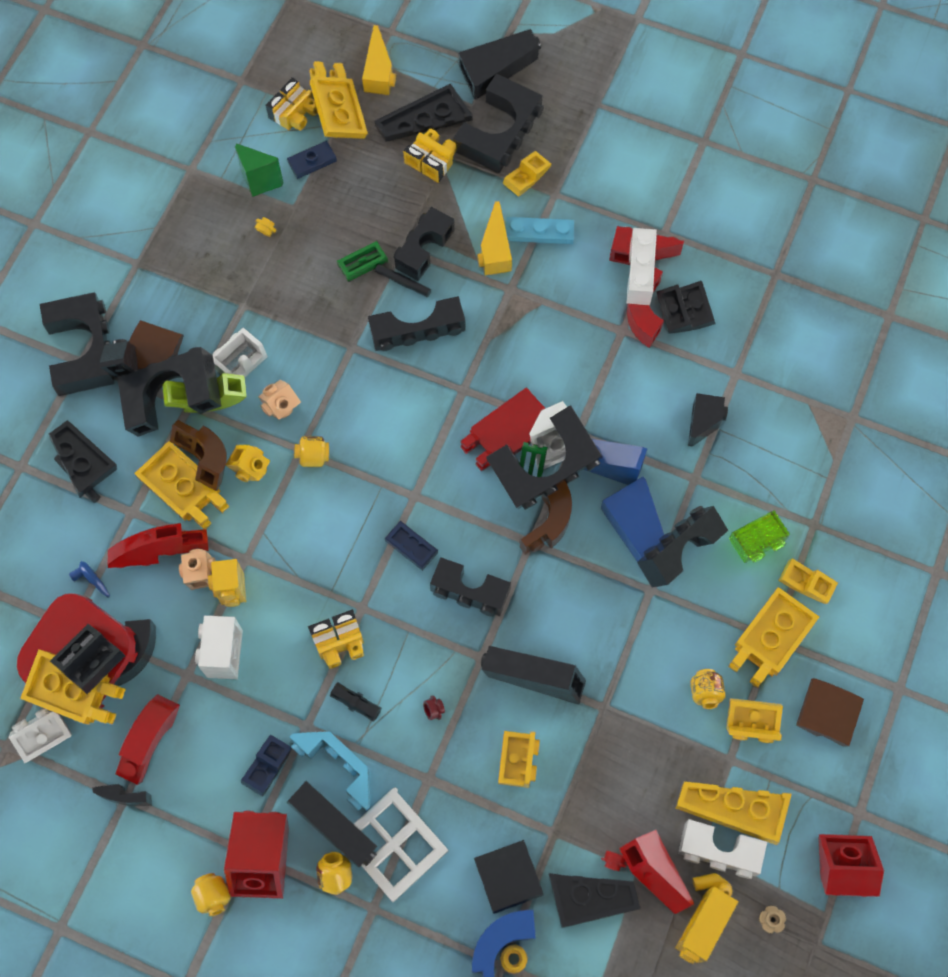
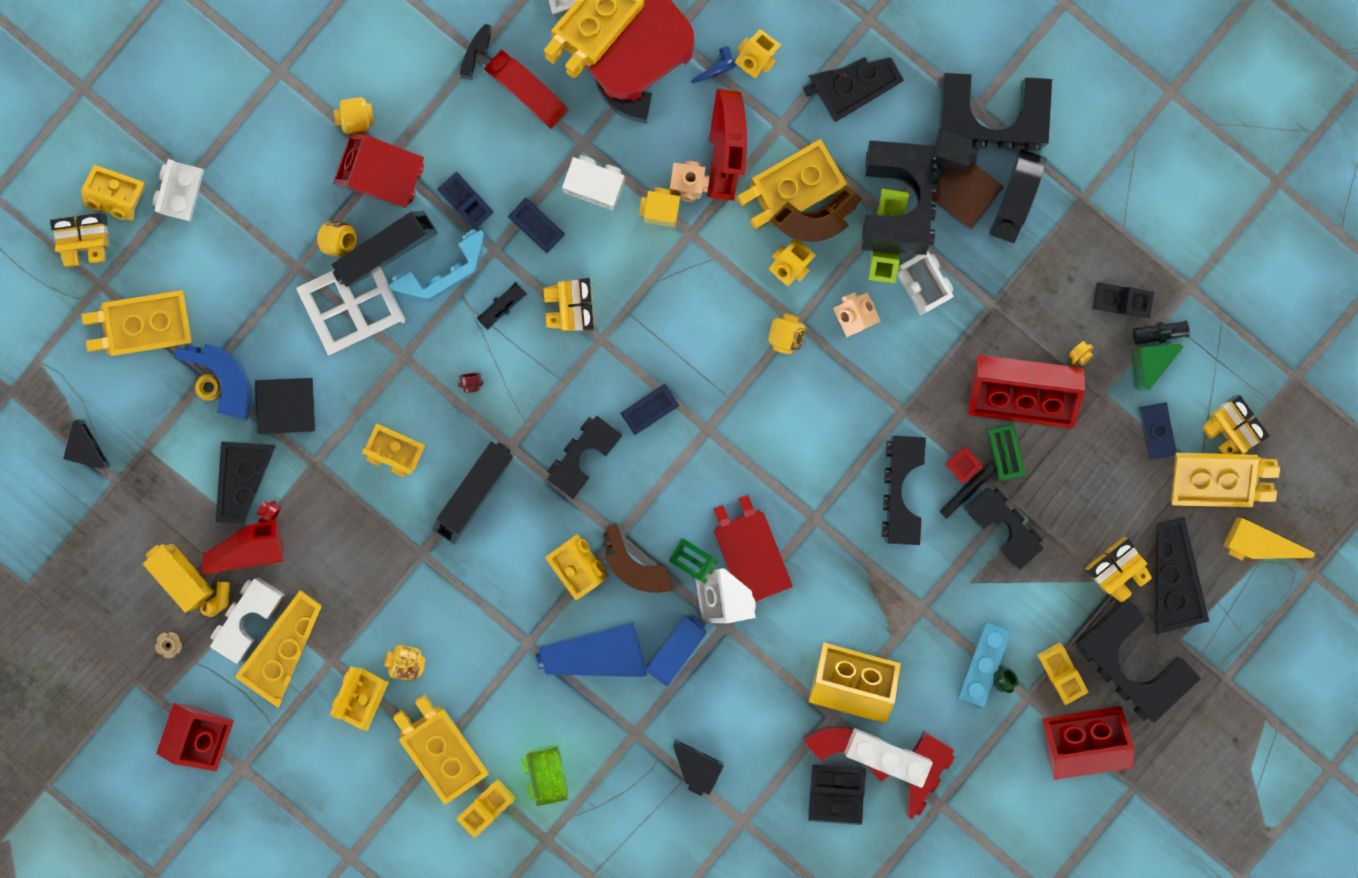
camera: 105 degrees right, 20 degrees up
(69, 543) = (757, 54): none -> yellow brick
(87, 658) = (613, 48): black slope -> none
(145, 301) = (1018, 196): none -> black arch
(213, 210) = (1123, 300): none -> black slope
(236, 186) = (1179, 330): none -> black pin
(272, 692) = (536, 225): none -> dark blue plate
(307, 257) = (1026, 391): none -> red slope
(382, 287) = (963, 465): none -> red plate
(495, 249) = (973, 605): yellow slope -> none
(498, 57) = (1224, 687): black slope -> none
(547, 209) = (1005, 680): none -> dark green plate
(569, 565) = (577, 566): none -> yellow bracket
(575, 139) = (1088, 743): none -> red slope
(580, 454) = (667, 546): black arch -> none
(589, 317) = (855, 683): none -> yellow slope
(664, 561) = (540, 660): black arch -> none
(830, 712) = (345, 777): reddish brown slope -> none

